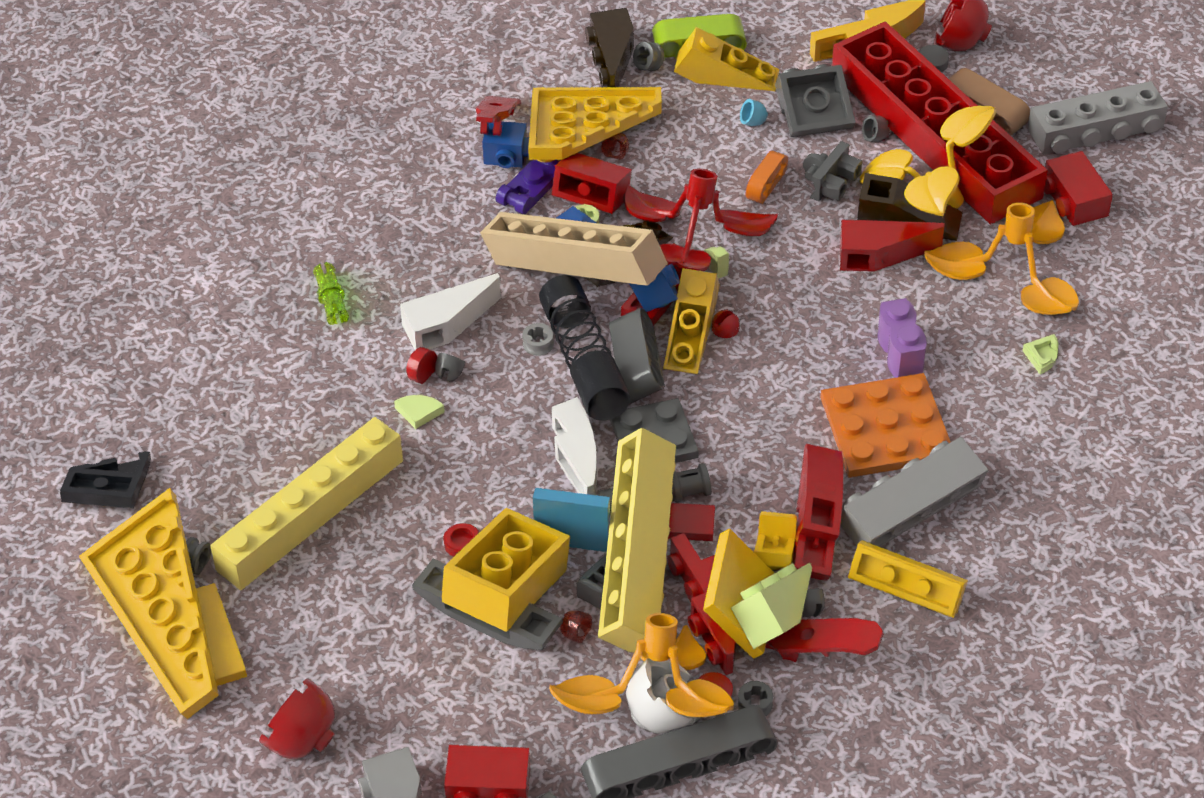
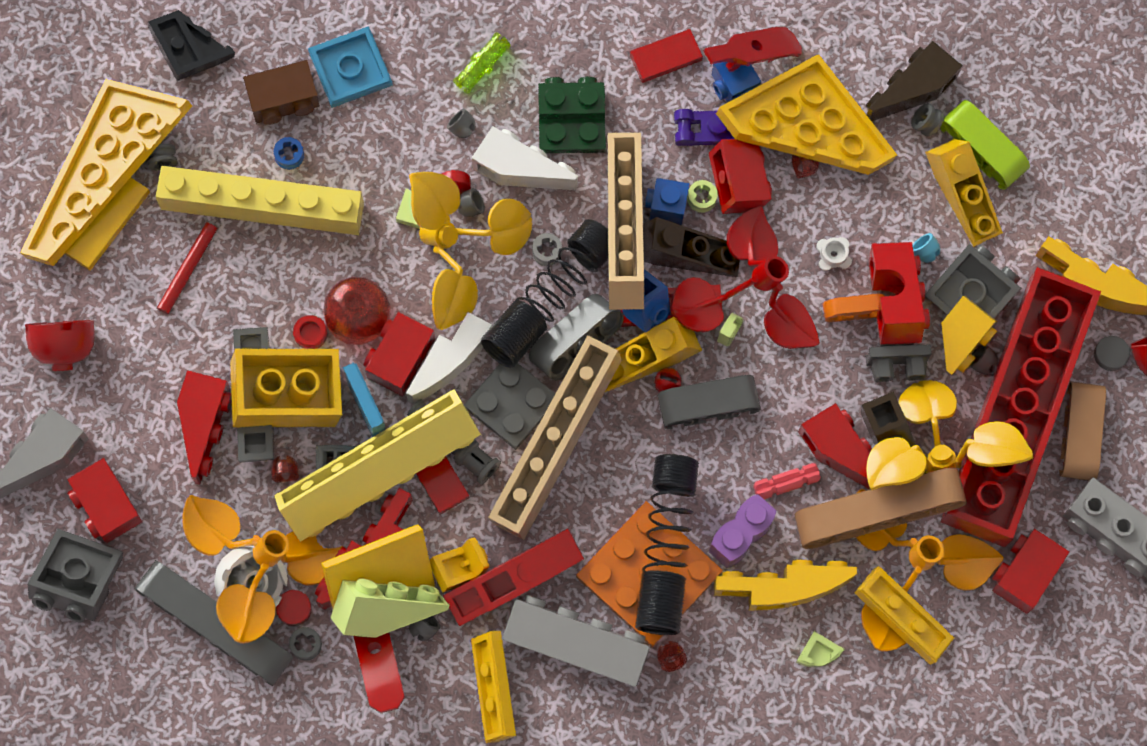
camera: 50 degrees right, 25 degrees up
(222, 436) = (281, 92): none -> reddish brown brick
(244, 383) = (350, 67): none -> dark azure tile
(285, 474) = (279, 150): none -> blue bush
(316, 598) = (187, 268): none -> red bar
(371, 334) = (462, 124): none -> dark grey hinge
(434, 259) = (572, 116): none -> dark green plate
(441, 179) = (666, 55): none -> red tile
(463, 391) = (432, 202): none -> yellow plant
(470, 658) = (200, 413): none -> red slope
(472, 492) = (356, 310): none -> clear red cylinder
(537, 468) = (399, 353): none -> red brick
(711, 162) = (838, 245): none -> white plate
(720, 408) = (555, 437): none -> tan brick
(767, 303) = (709, 400): none -> dark grey beam
(801, 137) = (897, 270): none -> red arch
(846, 118) = (962, 333): none -> yellow slope
(878, 293) = (787, 481): none -> coral axle
(913, 404) = (663, 591): none -> black piece
(955, 238) = (880, 508): none -> medium nougat beam
(971, 341) = (799, 585): none -> yellow slope
(977, 442) = (669, 650): none -> clear red hinge
(1055, 278) = (904, 615): none -> yellow tile

